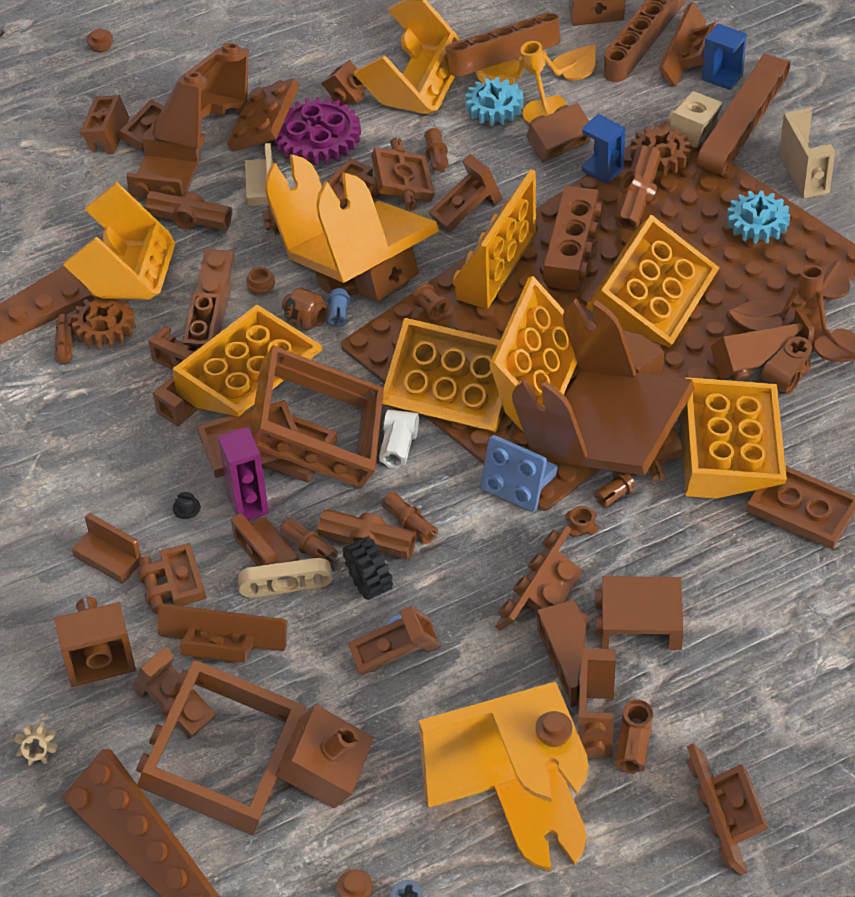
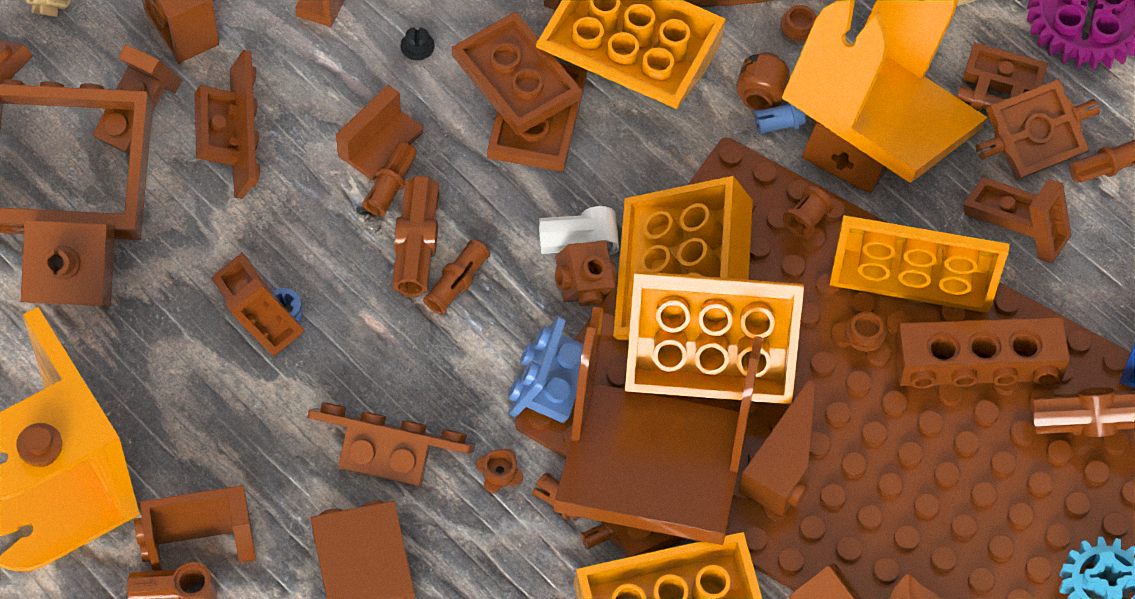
camera: 70 degrees right, 10 degrees up
(181, 573) = (309, 66): dark orange plate -> none
(243, 473) = (442, 73): magenta brick -> none
(304, 575) = (329, 168): tan beam -> none
(306, 450) = (620, 98): dark orange window -> none
(367, 568) = (350, 243): black tyre -> none
(438, 435) = (585, 272): none -> dark orange brick
(564, 635) = (299, 485): dark orange slope -> none
(655, 283) = (925, 472): light orange slope -> none

